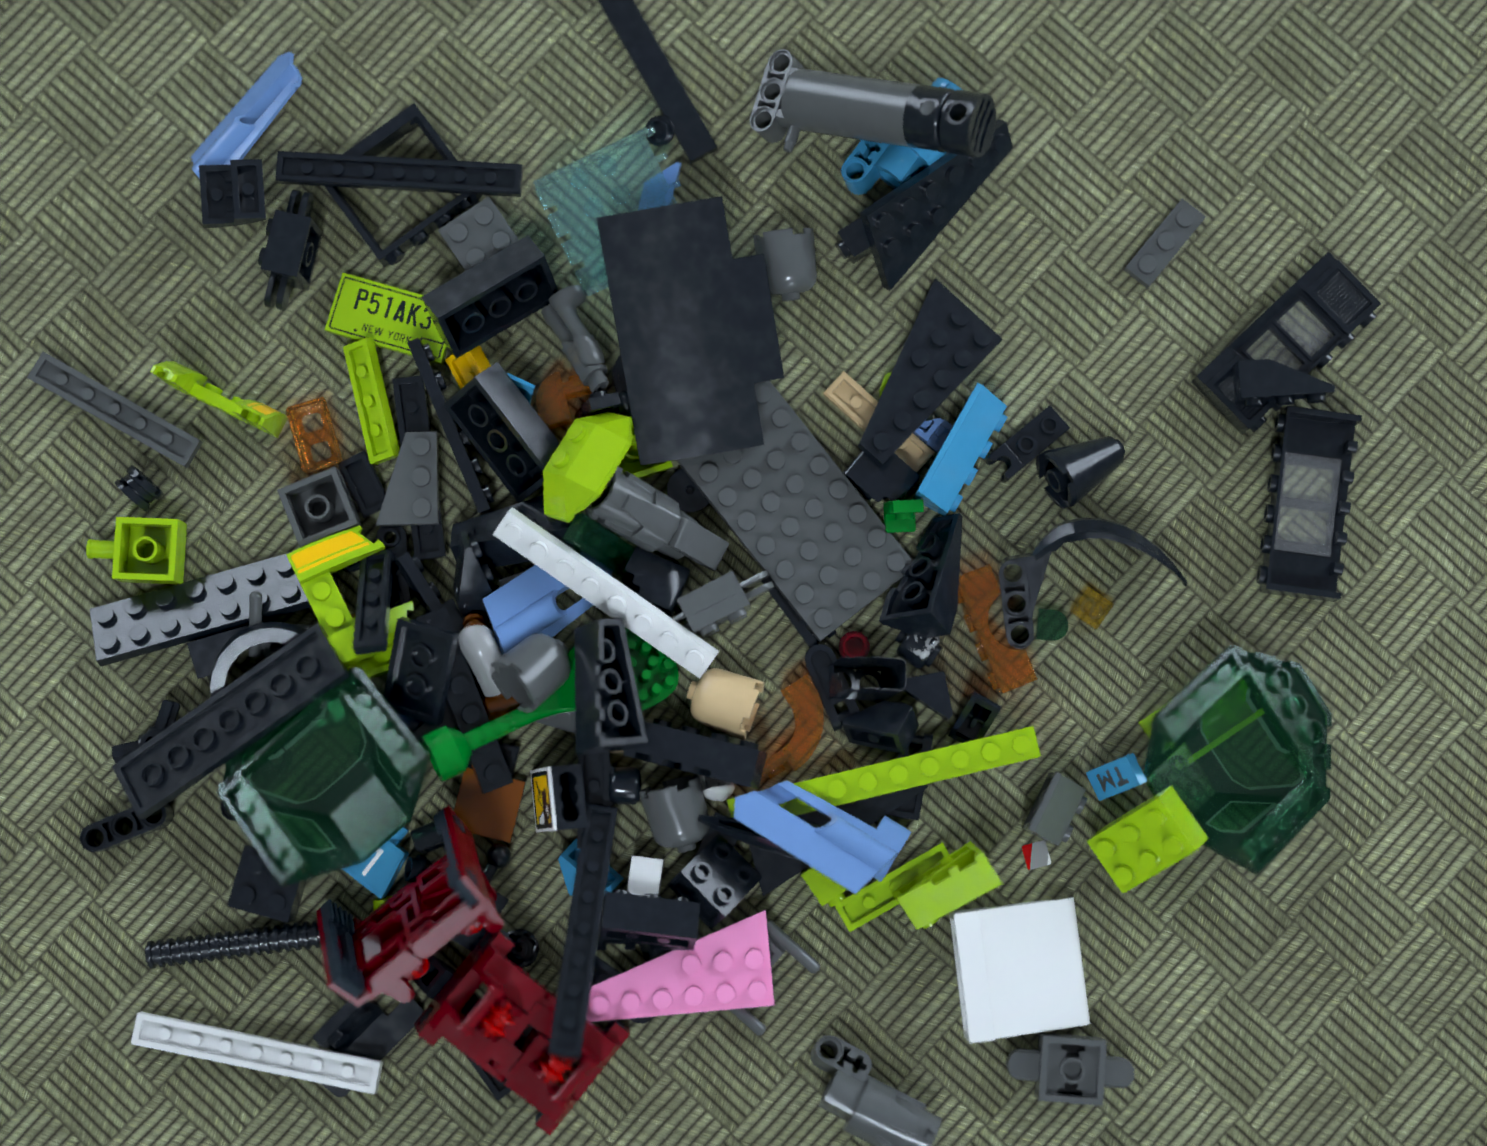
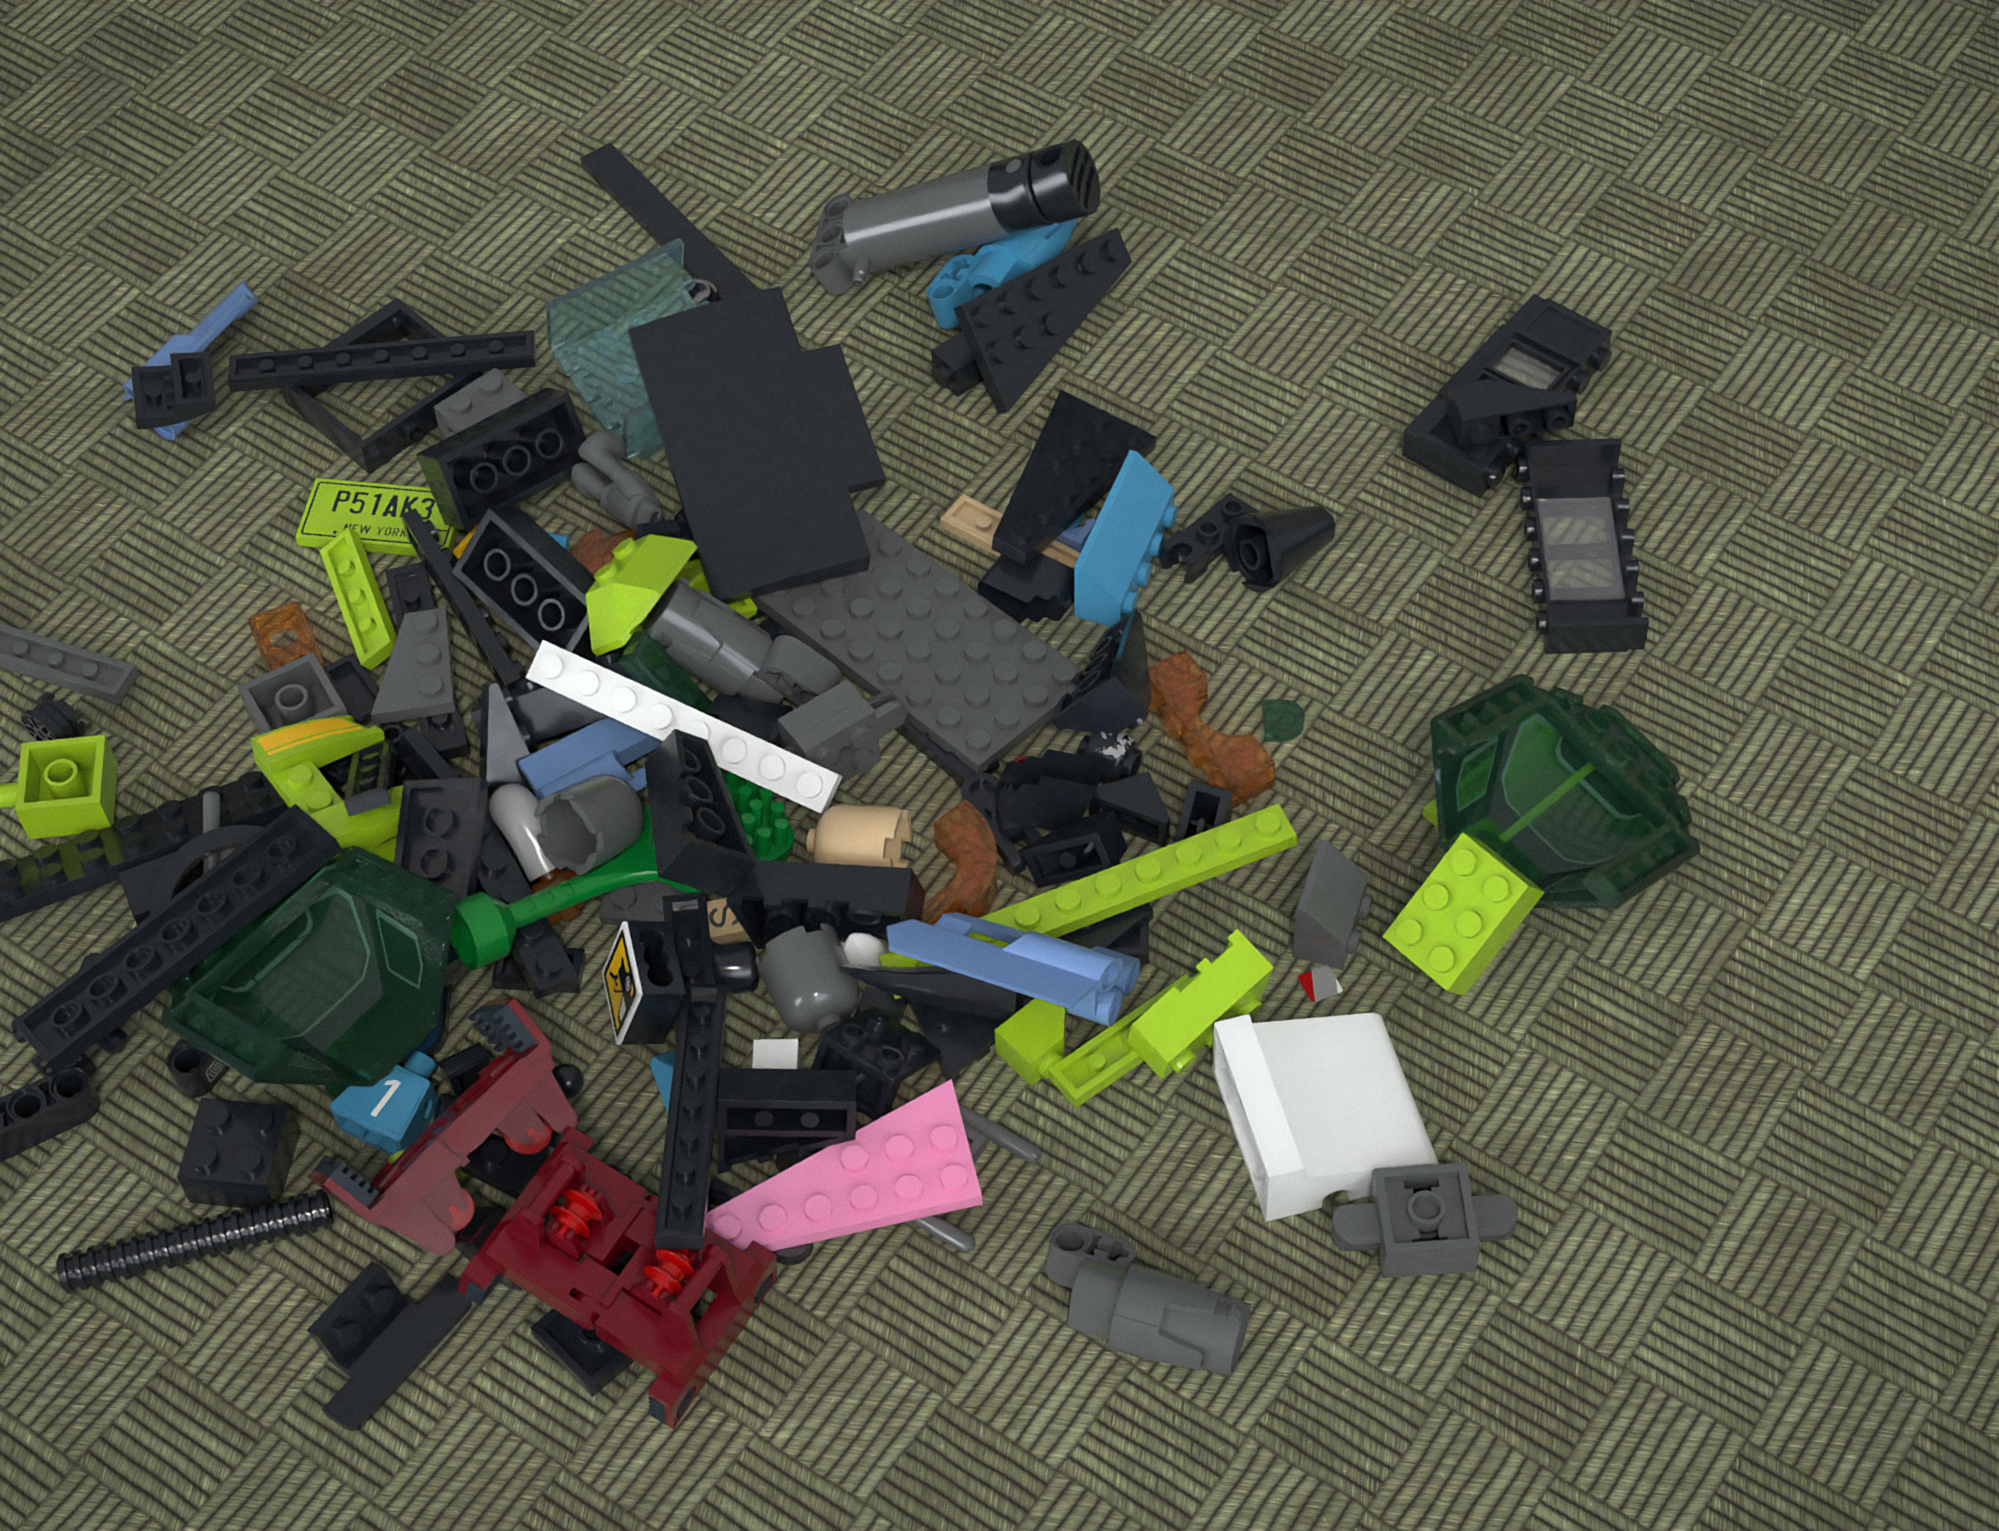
camera: 10 degrees left, 30 degrees down
(246, 410) = (206, 626): lime wedge -> none
(257, 1052) = (226, 1374): white plate -> none
(290, 250) = (248, 454): black brick -> none
(489, 813) = (562, 1018): dark orange tile -> none
(788, 261) = (879, 381): dark grey cylinder -> none
(900, 515) = (1061, 617): green bracket -> none
(1034, 566) = (1305, 591): black piece -> none
(1092, 608) = (1331, 696): clear yellow tile -> none
(1116, 776) = (1405, 858): dark azure tile -> none
(1164, 243) = (1335, 326): dark grey plate -> none

